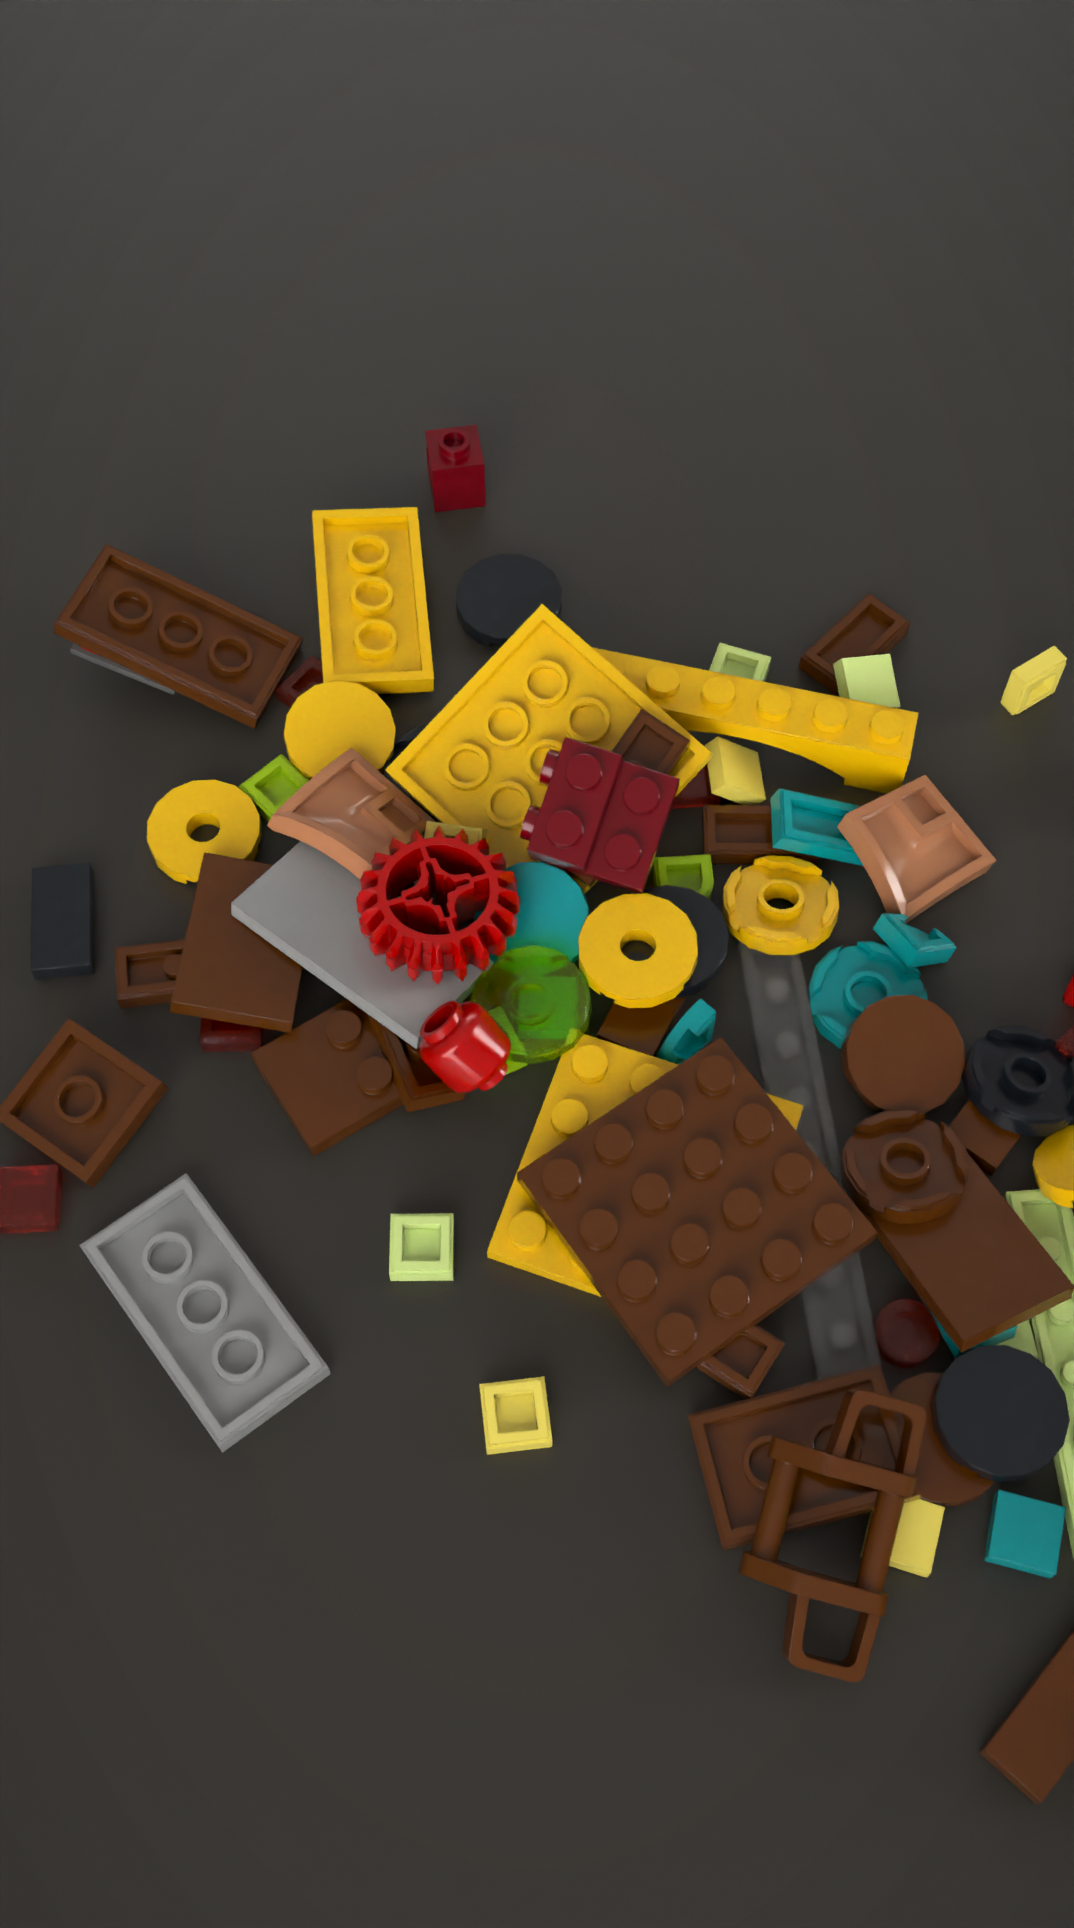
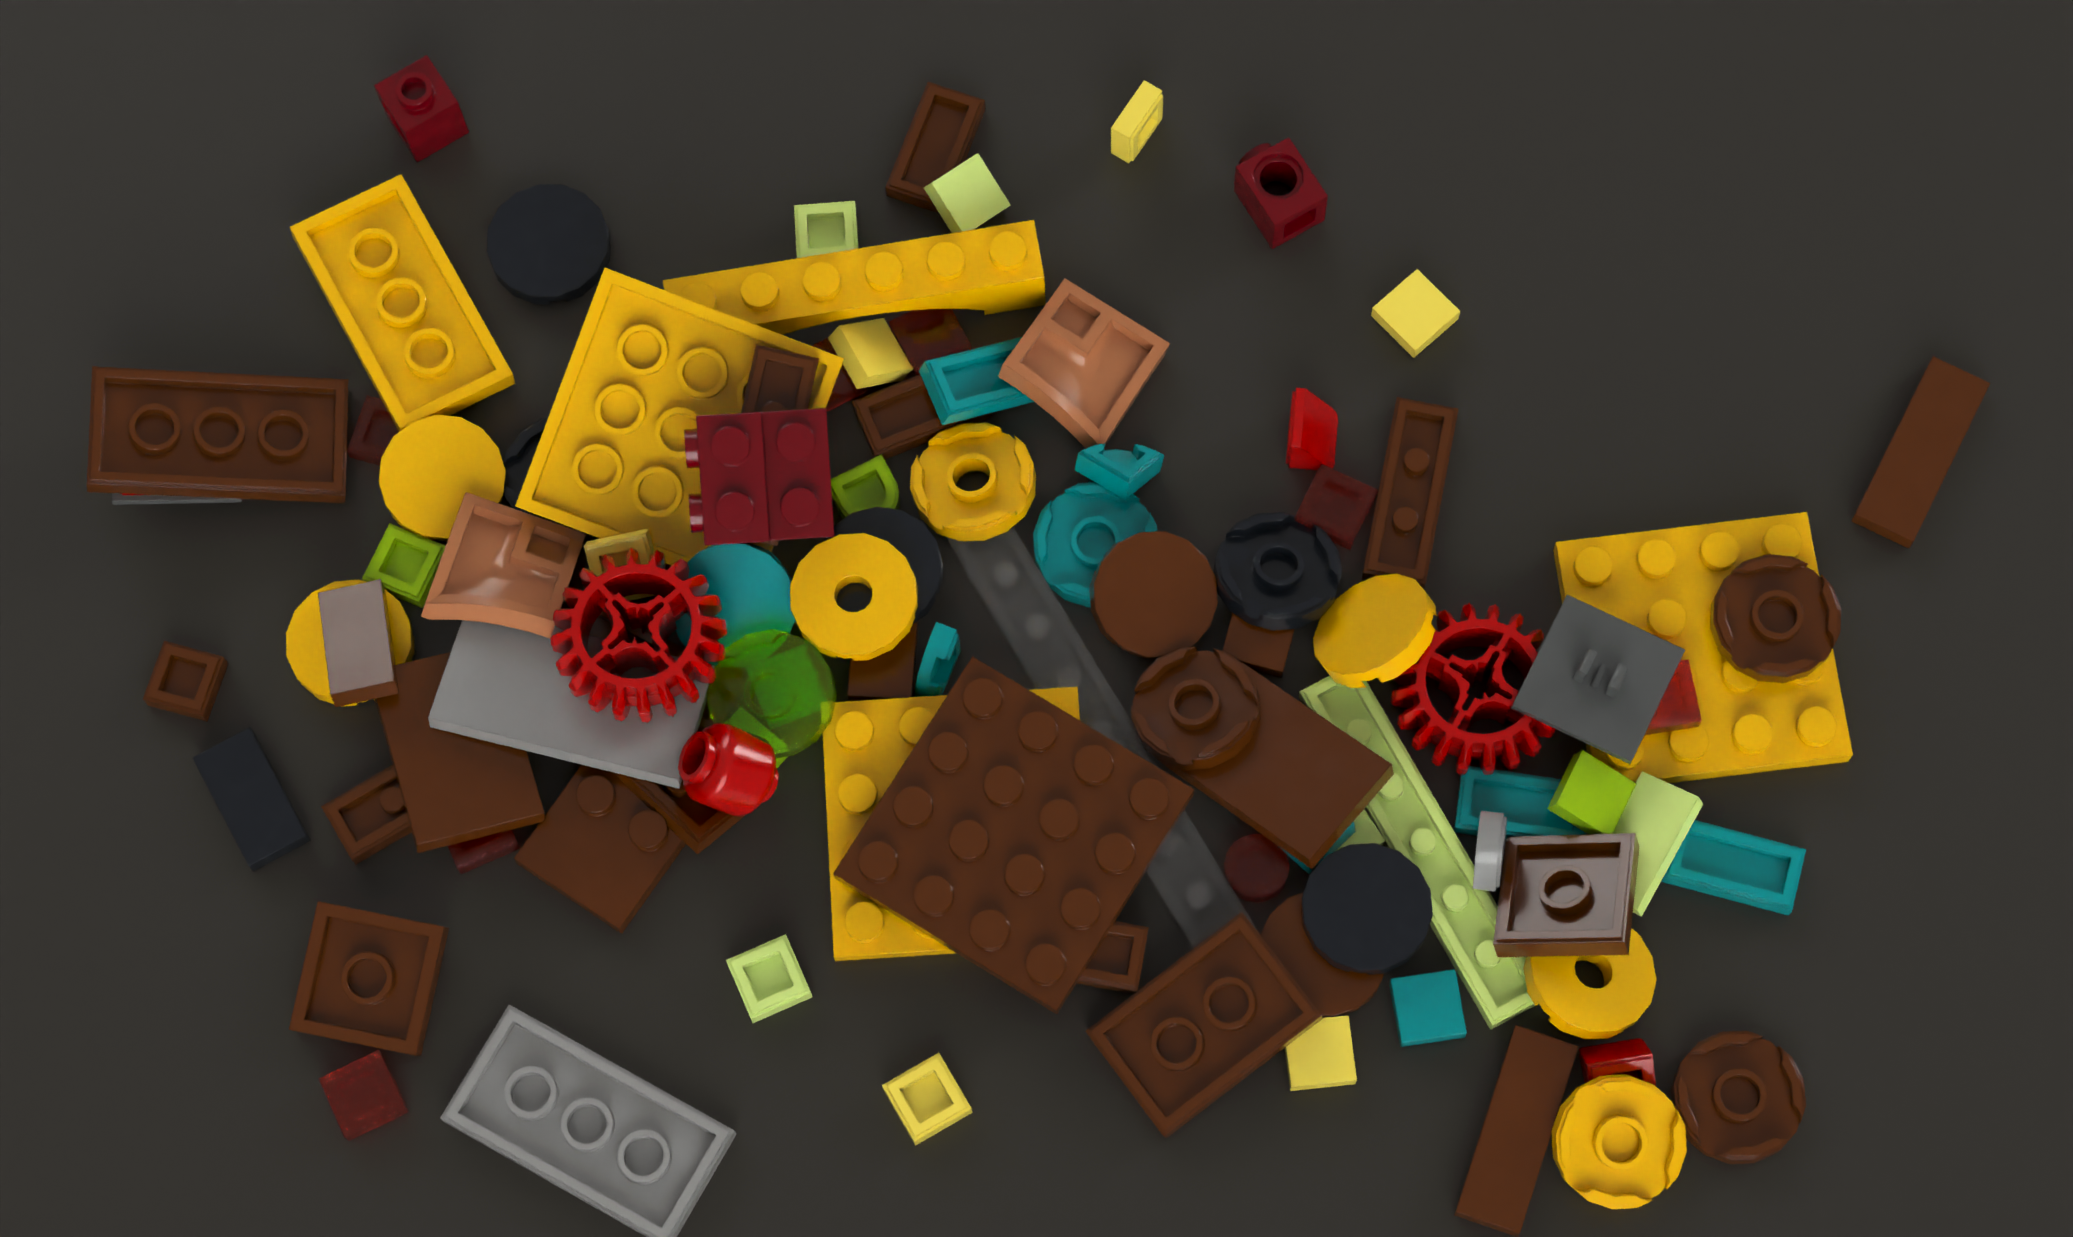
camera: 20 degrees left, 10 degrees up
(60, 811) = (185, 681): none -> reddish brown tile
(205, 827) = (358, 643): none -> tile
(789, 773) = (929, 335): none -> clear red tile
(867, 1592) = (1306, 1122): reddish brown bar -> none

